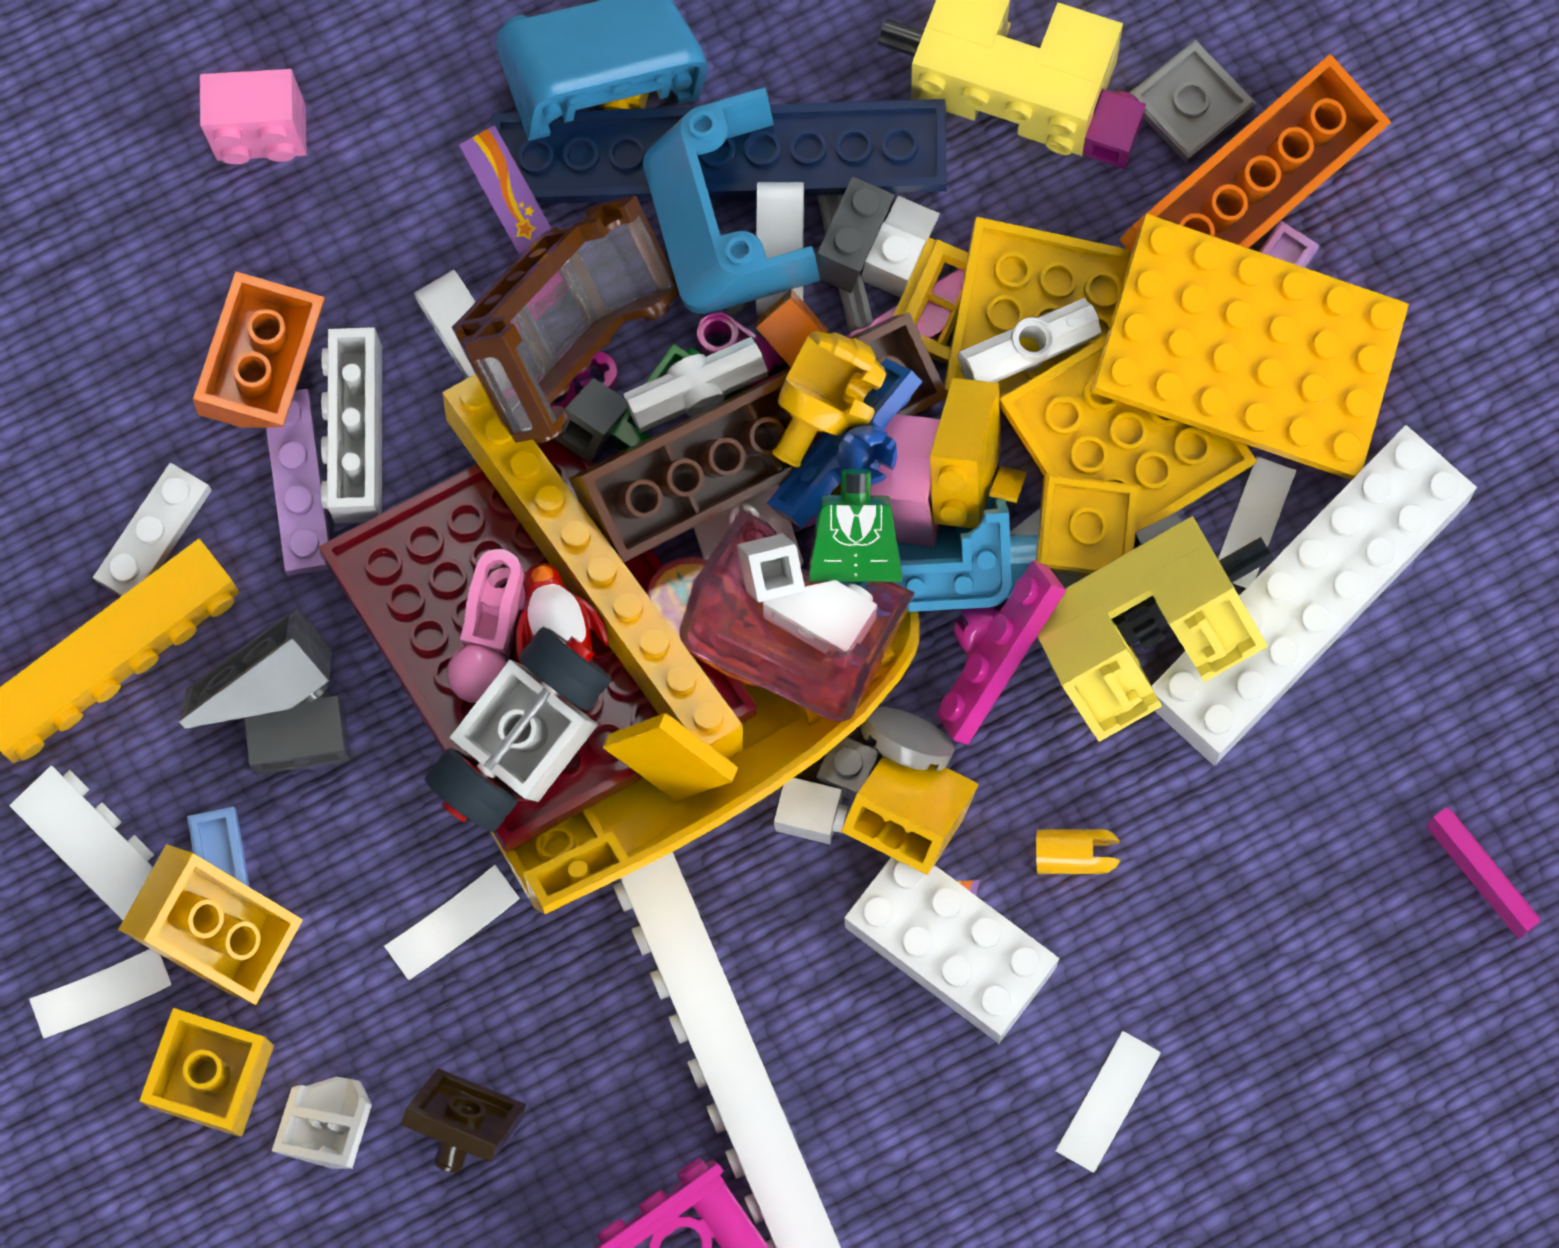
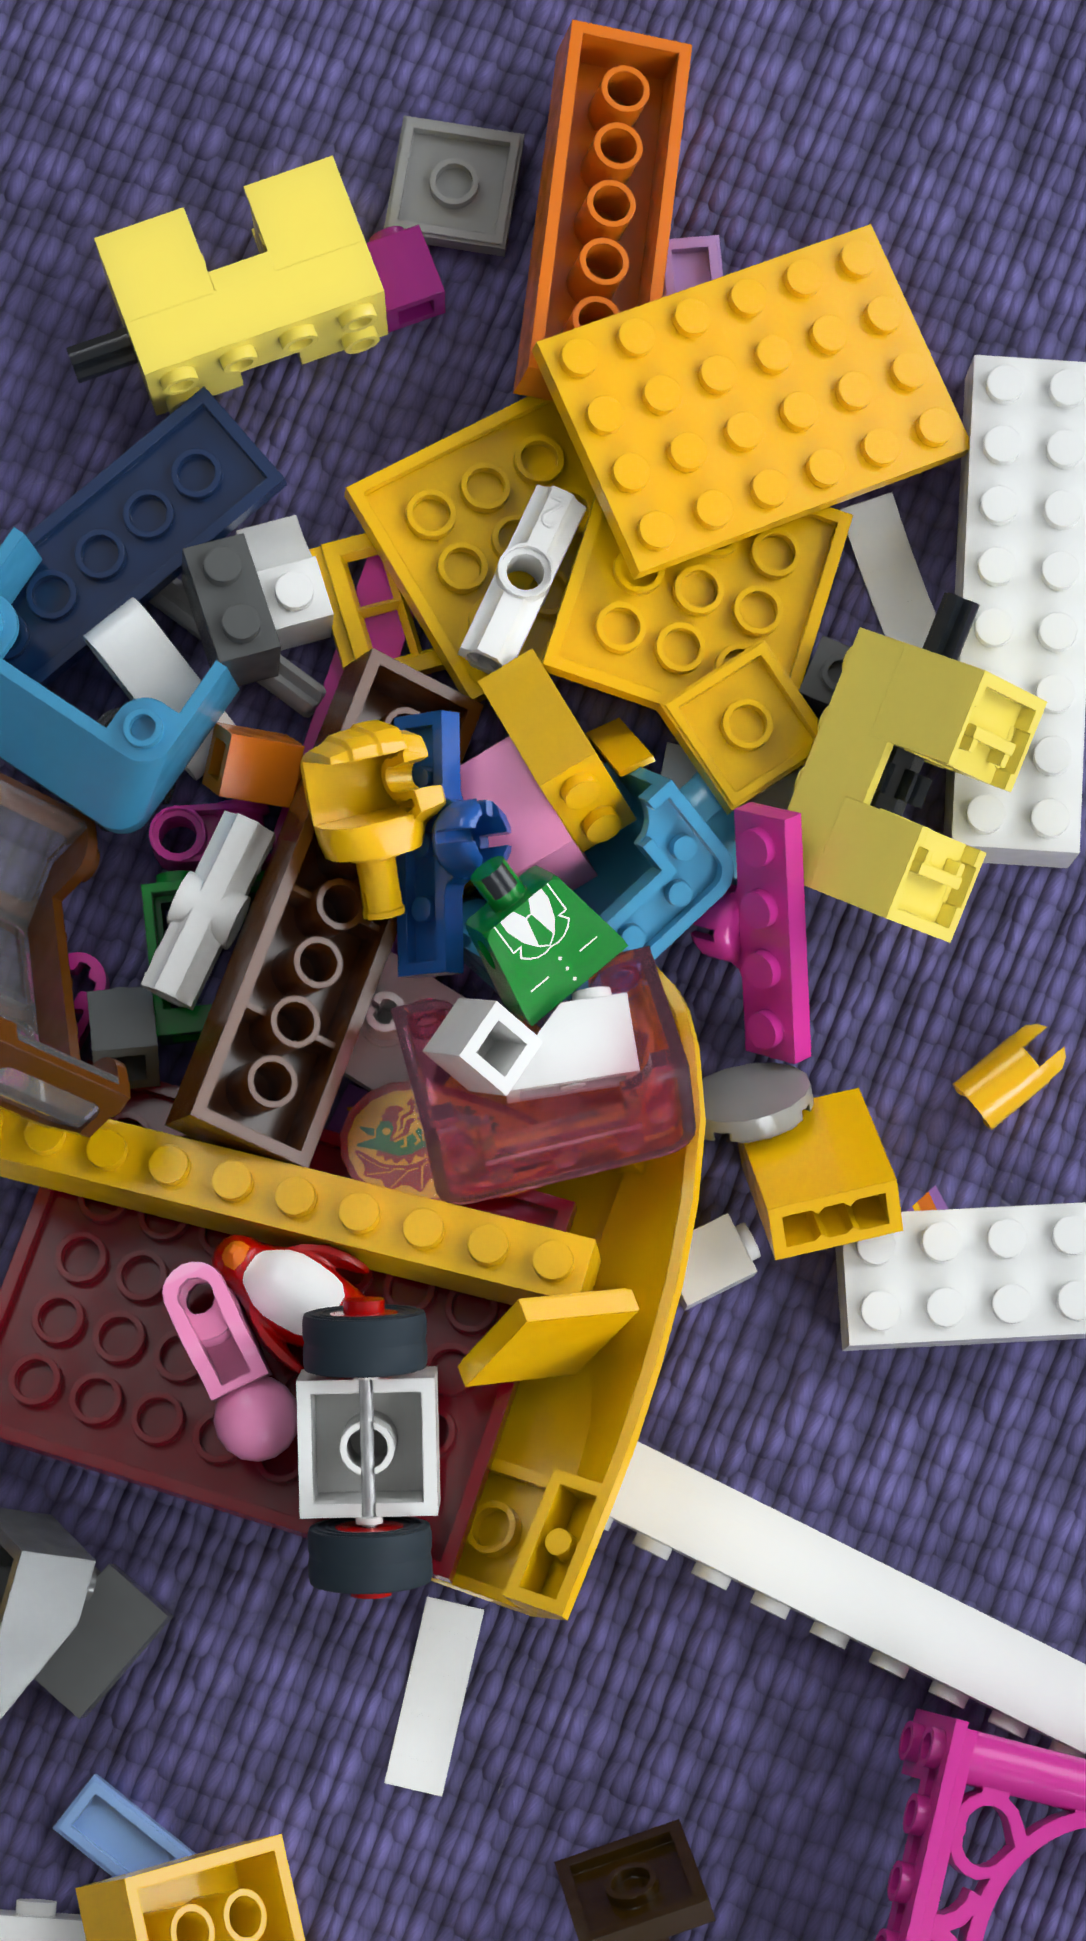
camera: 50 degrees left, 5 degrees up
(848, 767) = (722, 1184): dark grey brick -> none

